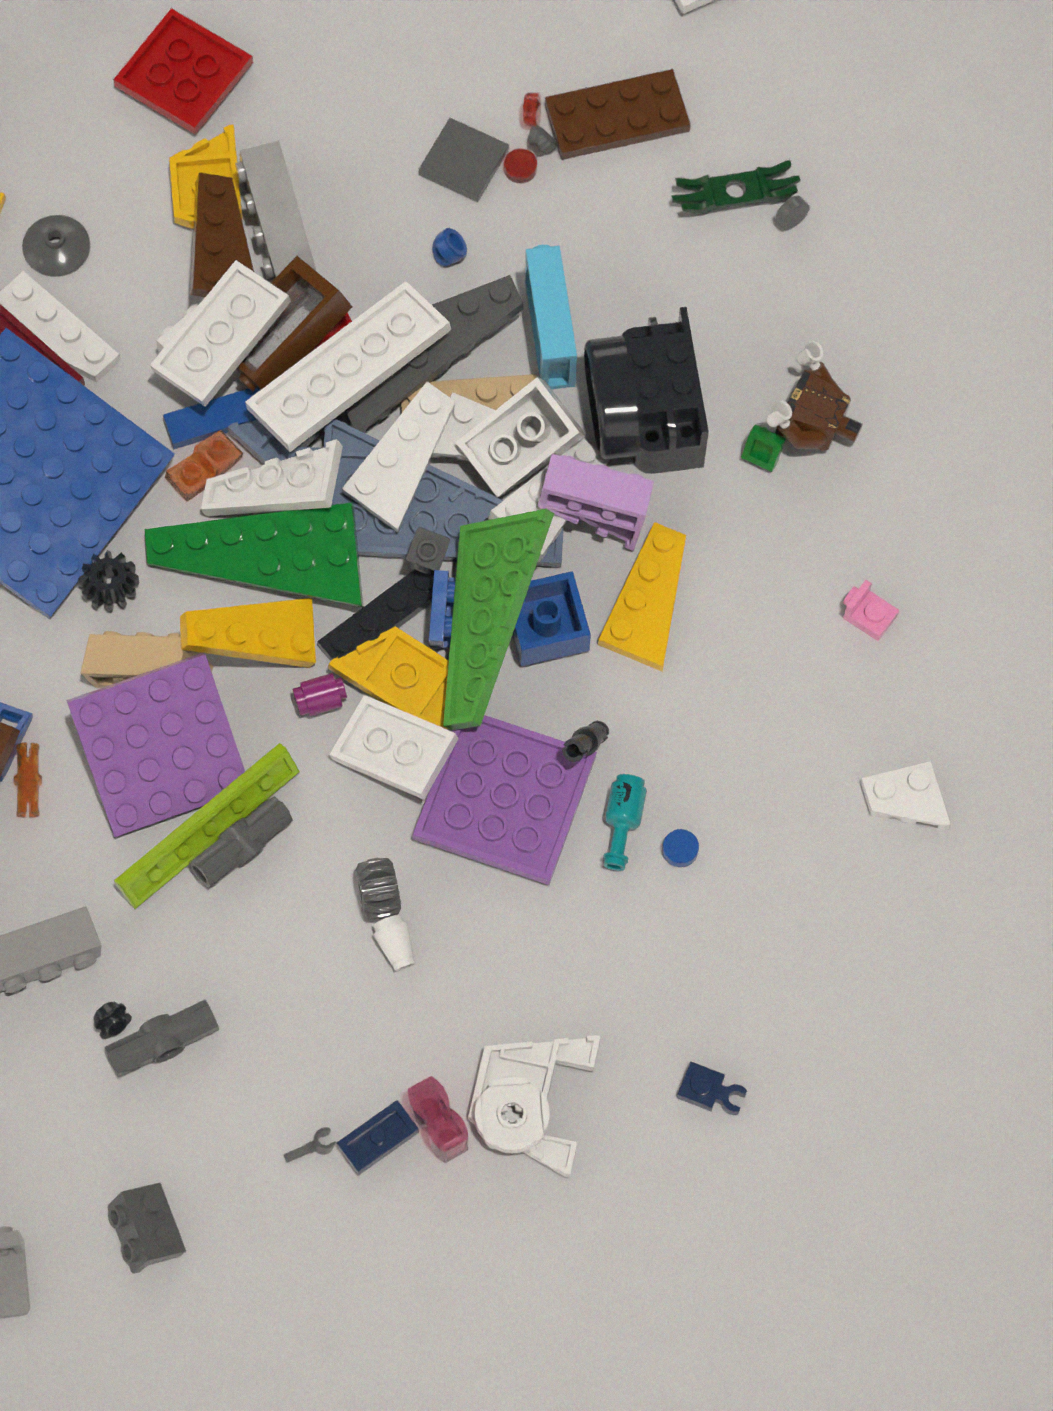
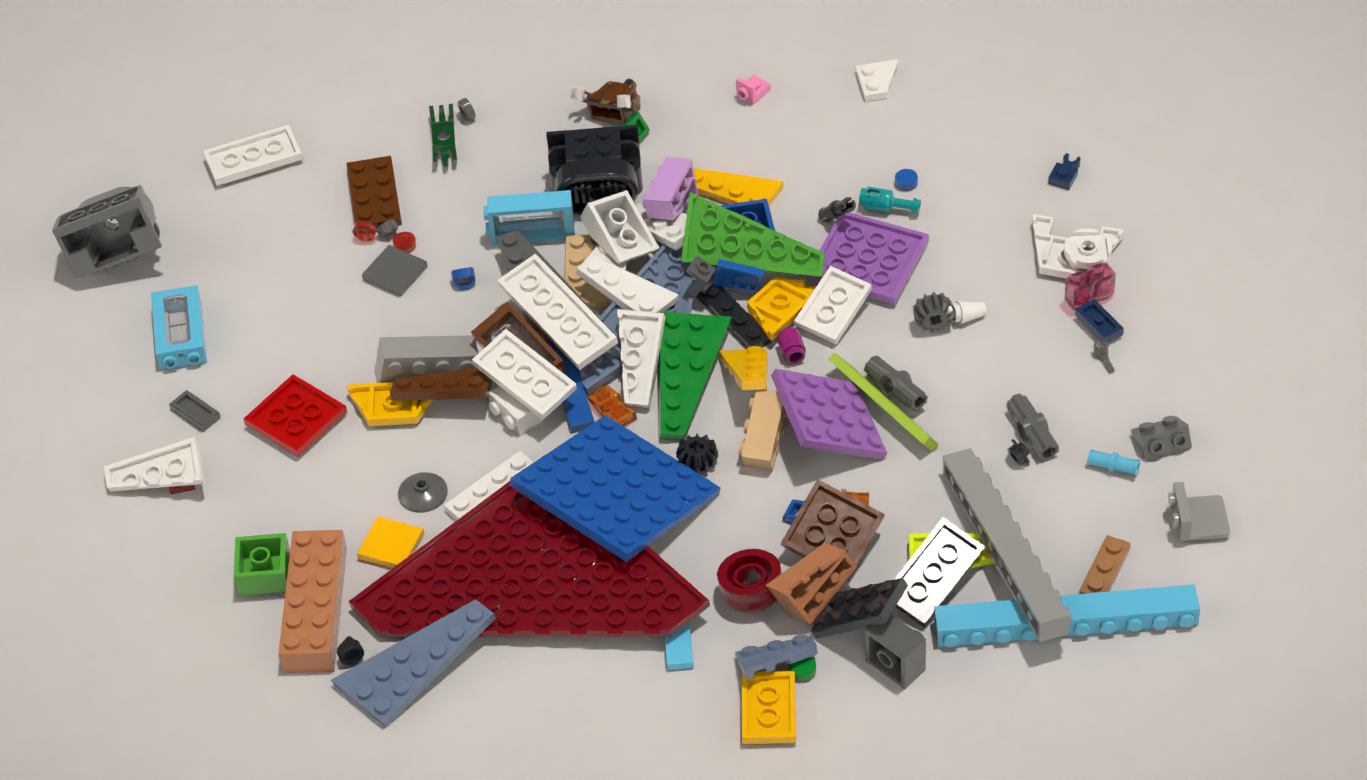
camera: 80 degrees left, 20 degrees down
(94, 1156) = (1113, 462): none -> medium azure pin

